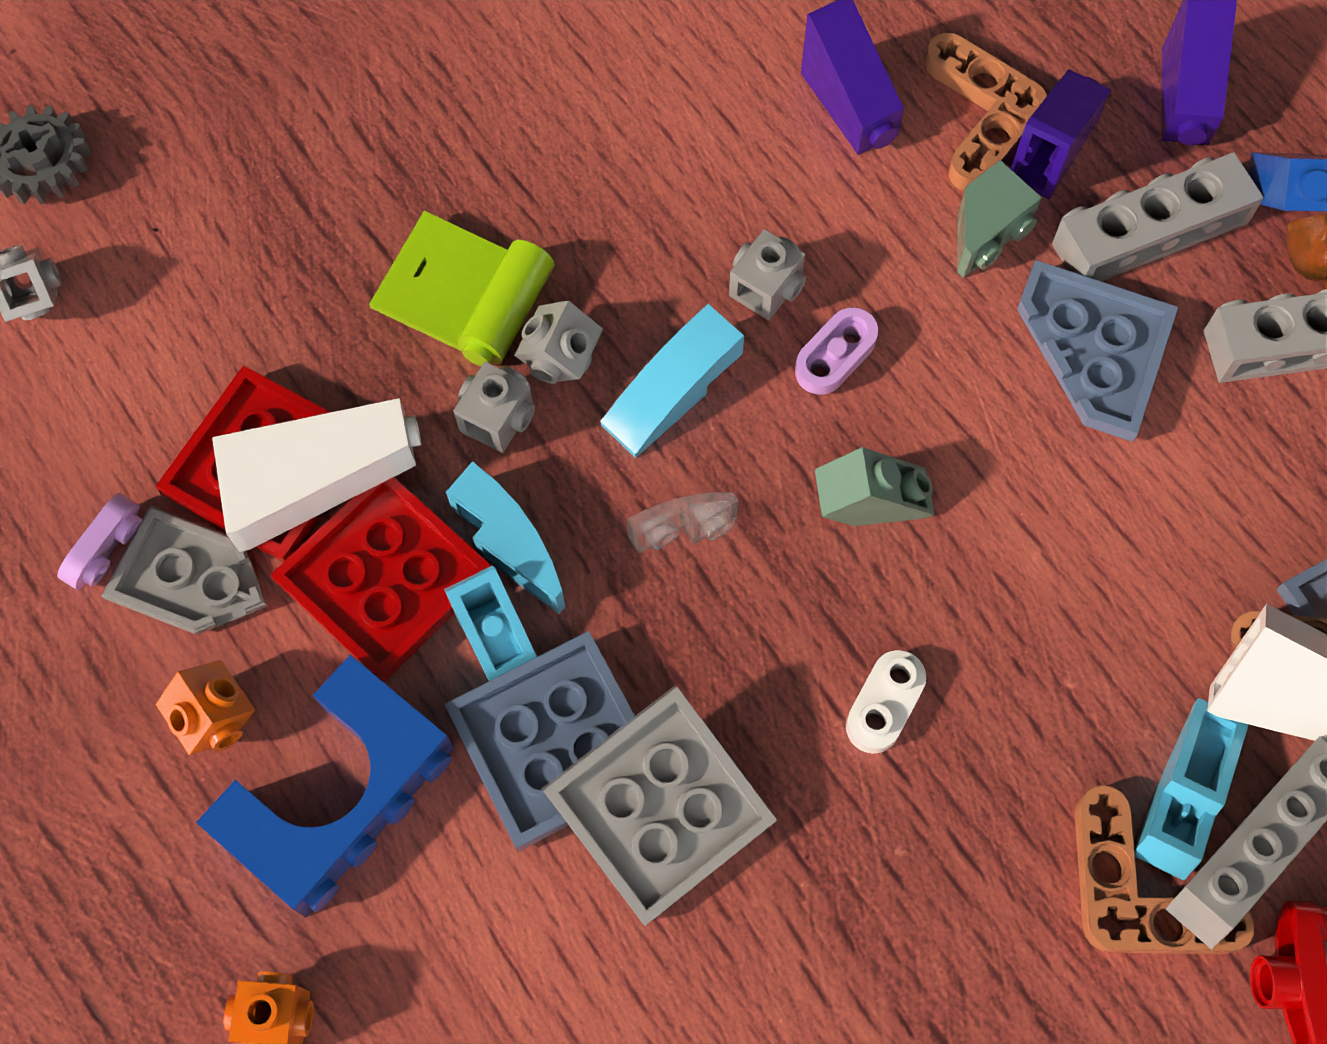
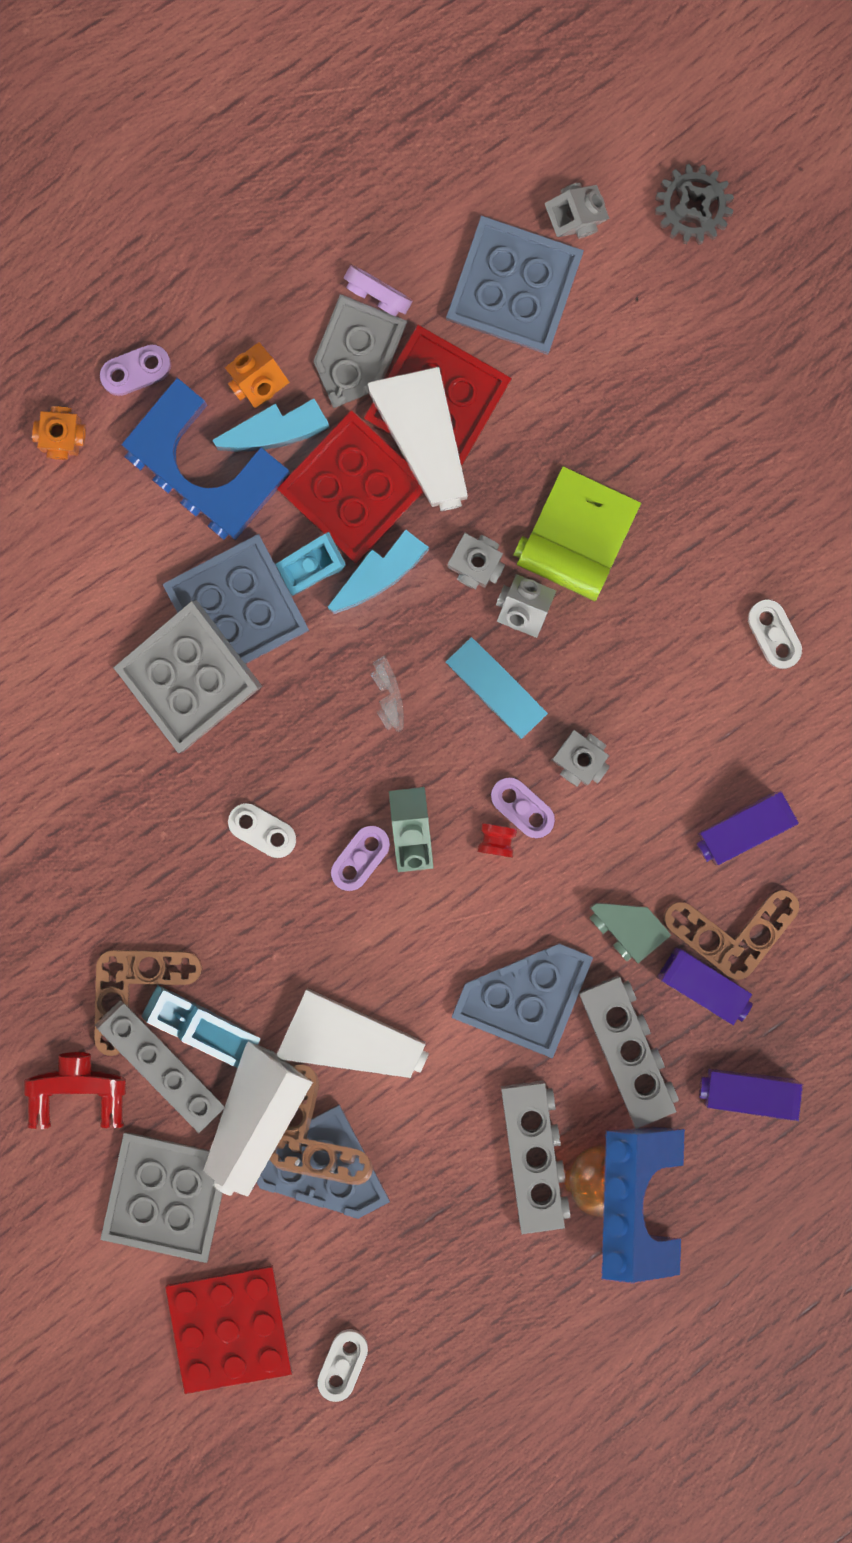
camera: 90 degrees right, 20 degrees up
(116, 368) = (514, 285): none -> sand blue plate
(183, 896) = (136, 373): none -> lavender plate
(289, 684) = (273, 430): none -> medium azure slope
(598, 63) = (776, 633): none -> white plate
(884, 380) = (497, 840): none -> red wheel
(922, 558) = (359, 857): none -> lavender plate
(1185, 576) = (344, 1038): none -> white slope

